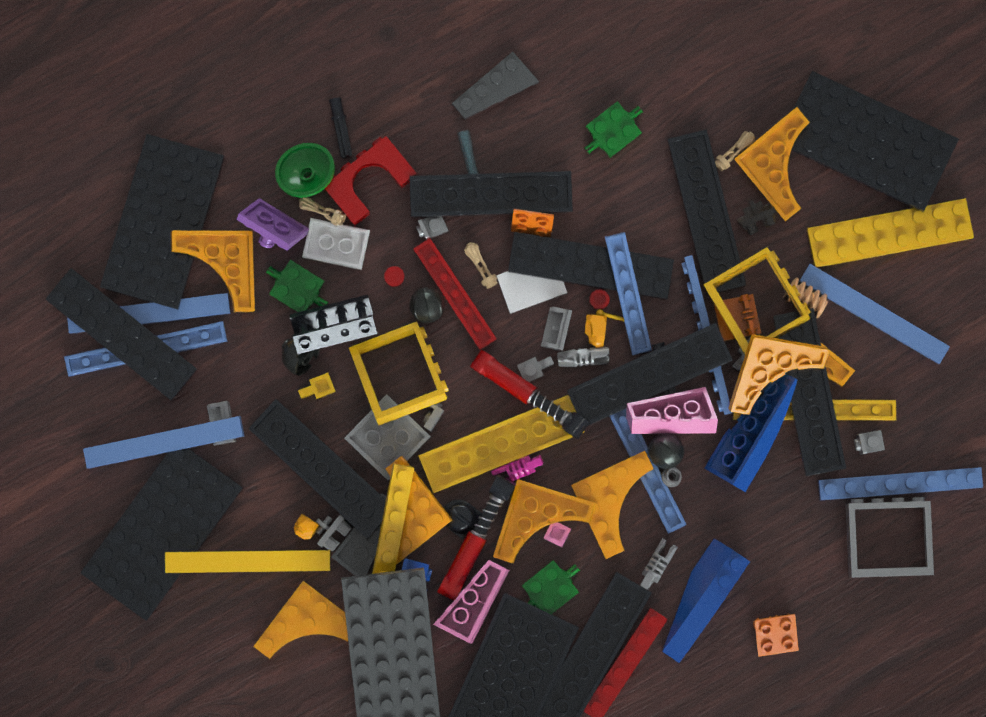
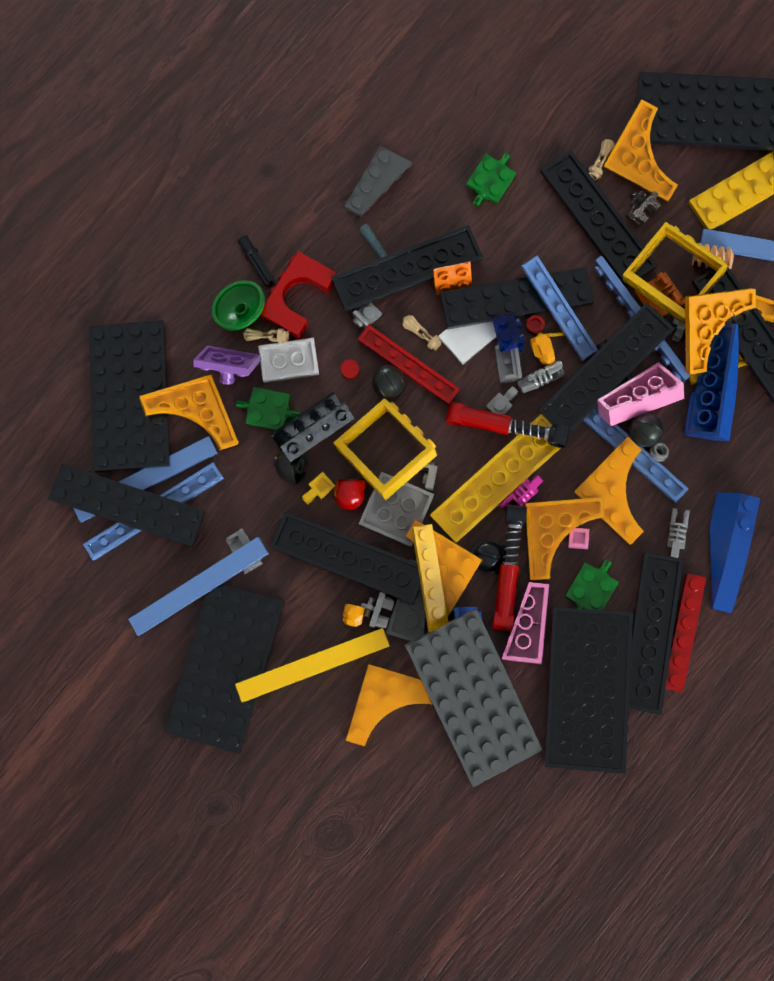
camera: 15 degrees left, 5 degrees down
(346, 404) = (349, 493): none -> red helmet
(566, 299) = (507, 332): none -> clear blue bracket

